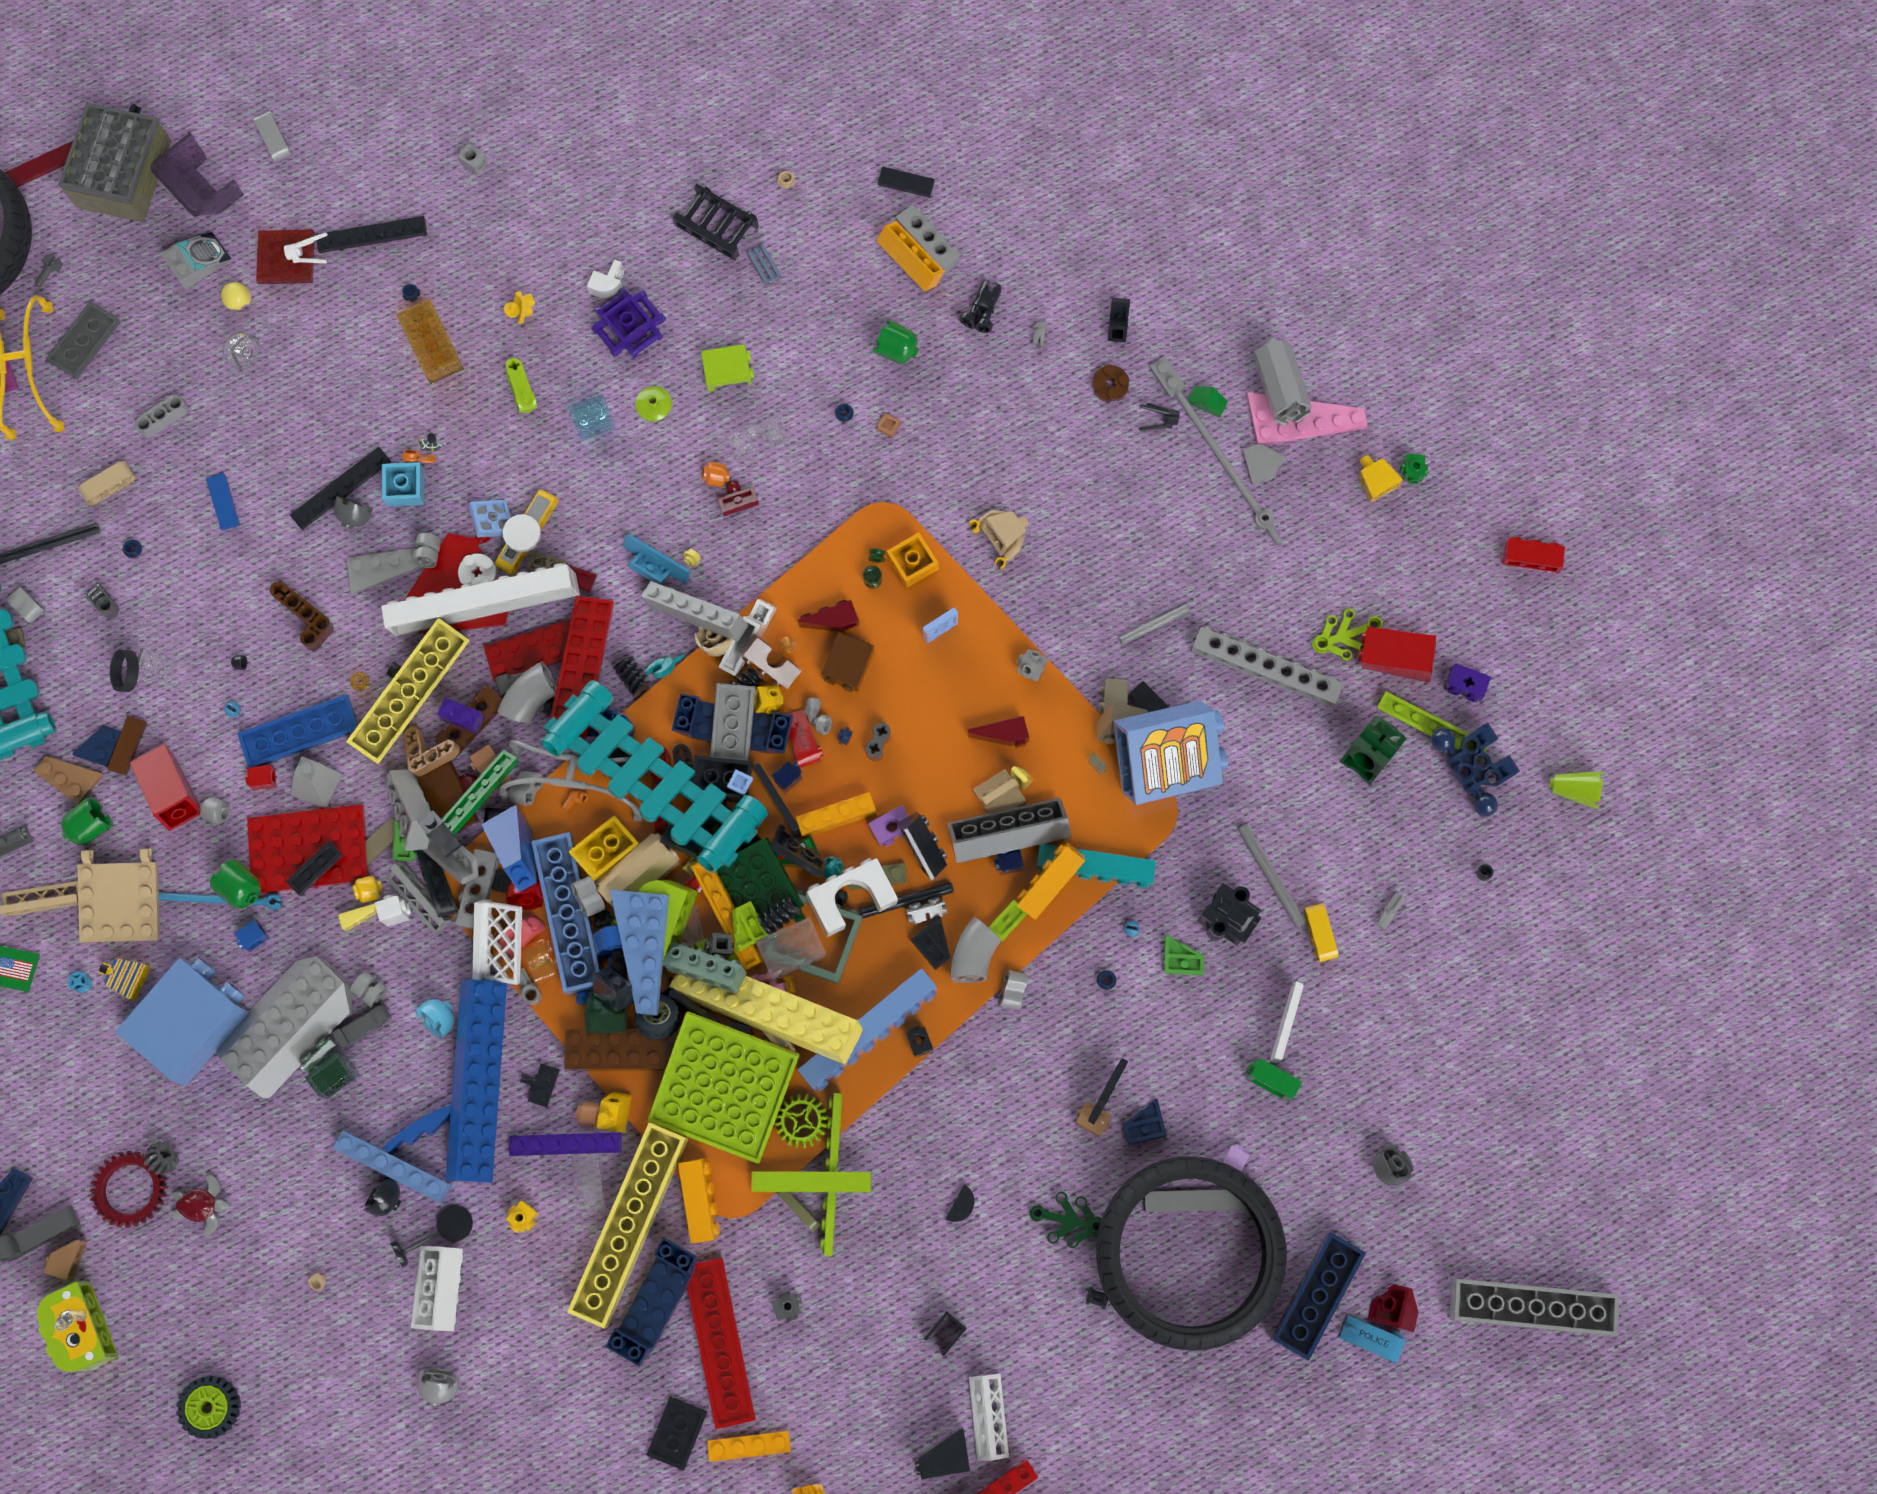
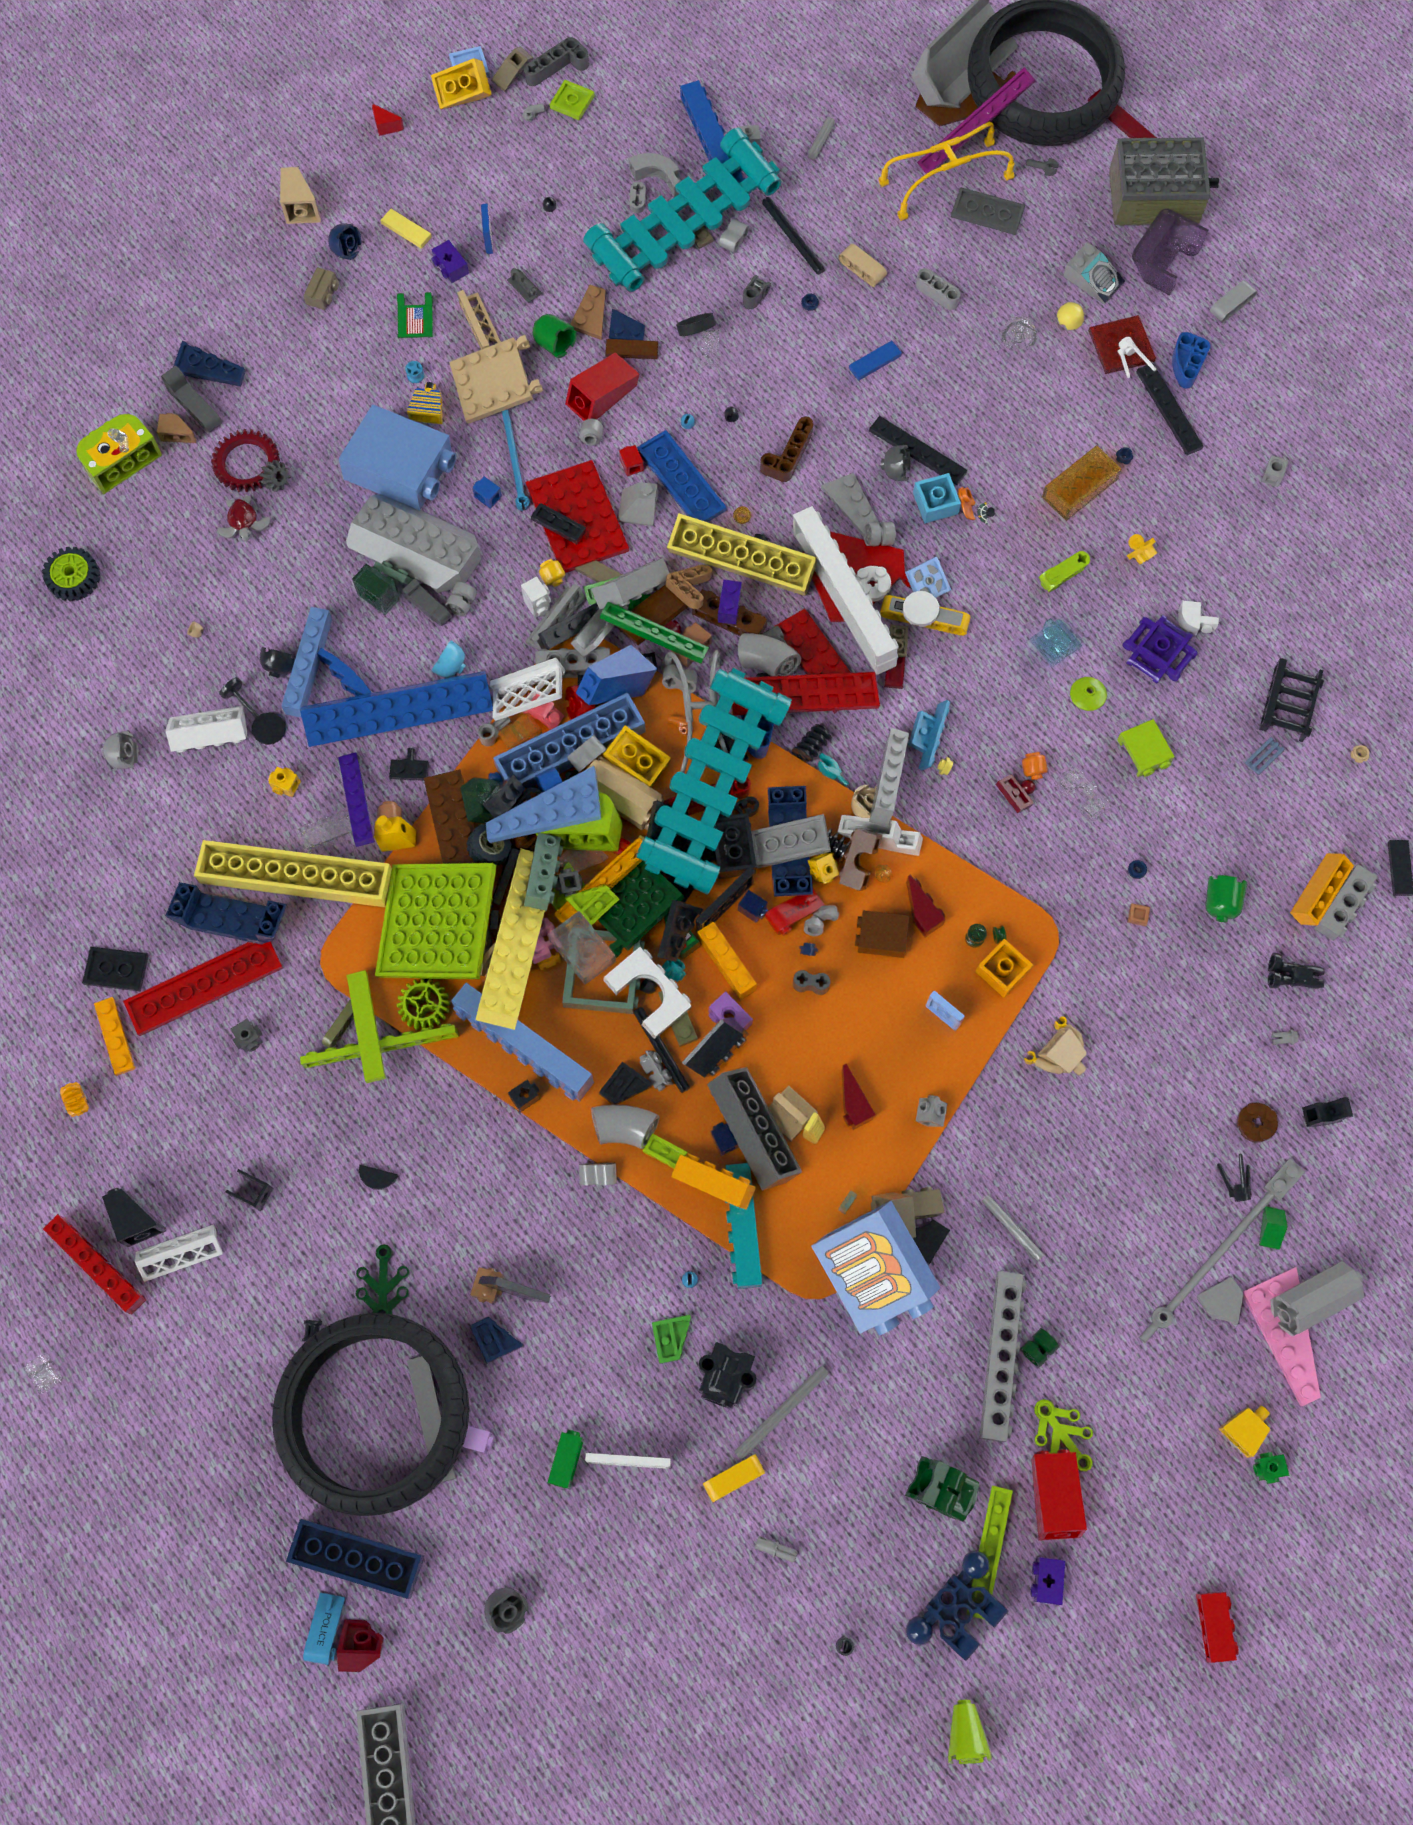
camera: 75 degrees right, 5 degrees down
(236, 884) = (527, 464): green cylinder -> none
(318, 200) = (1189, 350): none -> blue beam
(354, 917) = (522, 568): light yellow slope -> none
(439, 834) = (610, 608): black slope -> none
(698, 1200) = (329, 930): light orange brick -> none
(740, 782) = (731, 860): light blue tile -> none
(780, 915) = (611, 927): black piece -> none
(1106, 973) = (631, 1259): dark blue plate -> none
(1267, 631) = (1044, 1342): none -> dark green wheel

